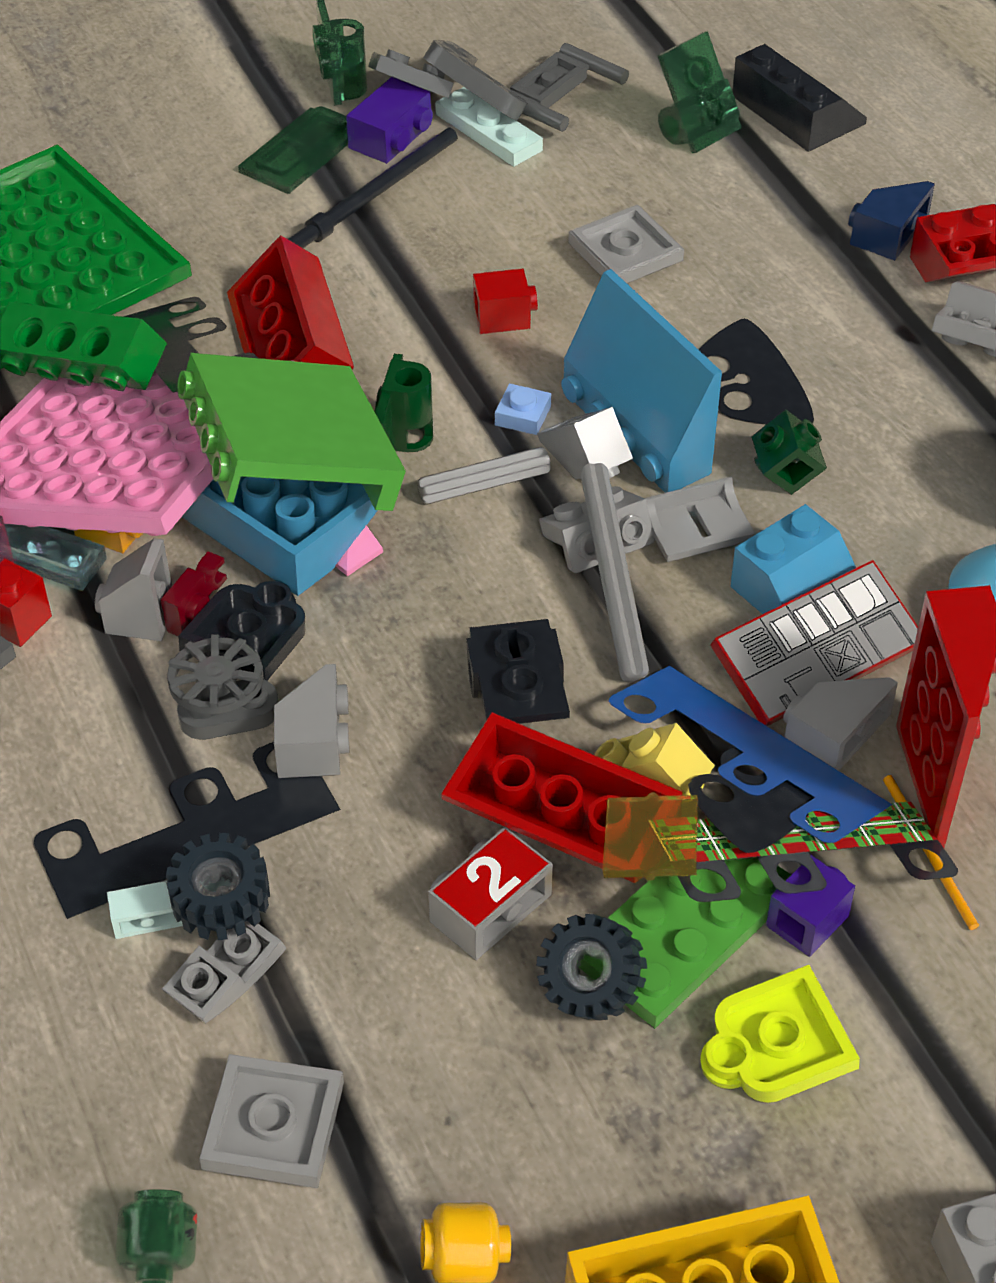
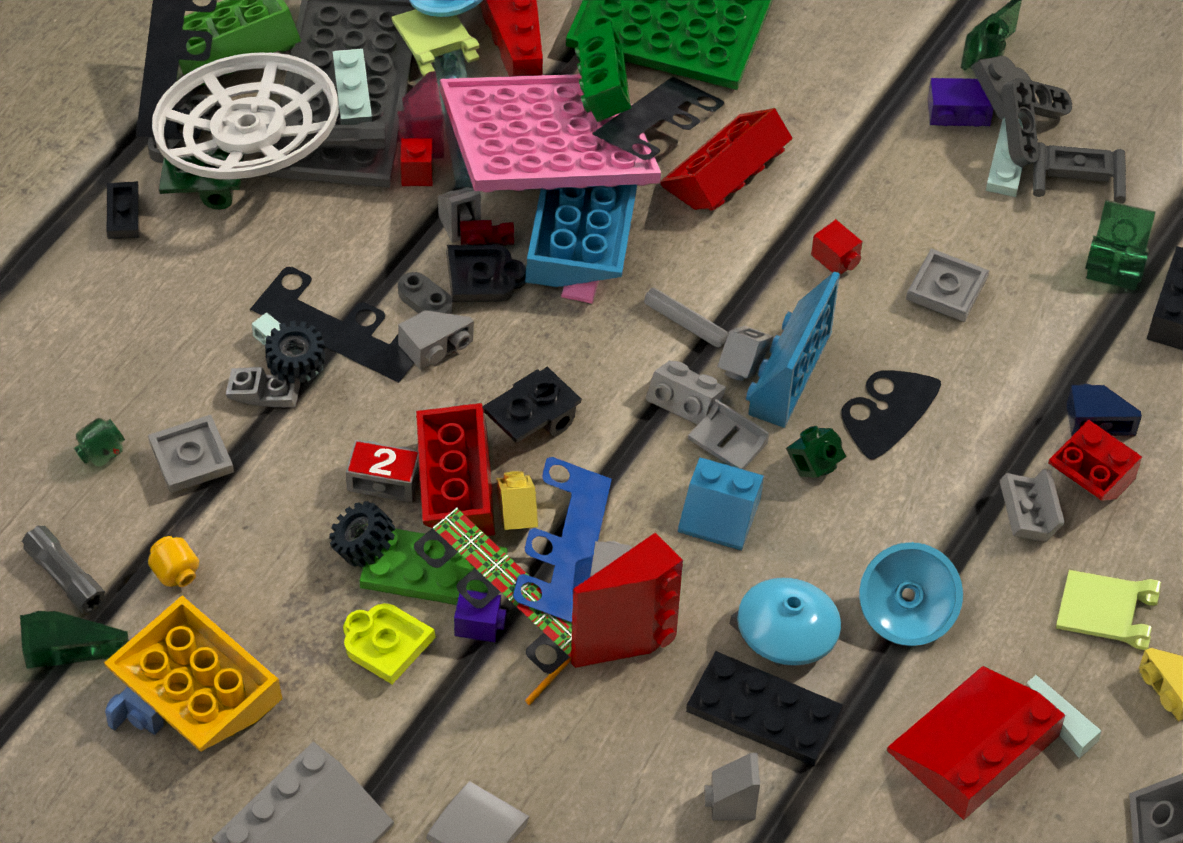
camera: 55 degrees right, 5 degrees up
(215, 675) = (429, 275): dark grey wheel -> none
(288, 424) = (597, 197): bright green panel -> none
(298, 150) = (897, 74): clear green piece -> none
(323, 224) = (832, 124): black bar -> none
(406, 404) = (687, 244): dark green piece -> none
(523, 409) = (758, 308): light blue plate -> none
(614, 573) = (644, 411): light grey axle -> none
(651, 836) = (445, 510): clear yellow piece -> none
(749, 819) = (509, 558): black piece -> none
(818, 637) = (702, 541): tile -> none

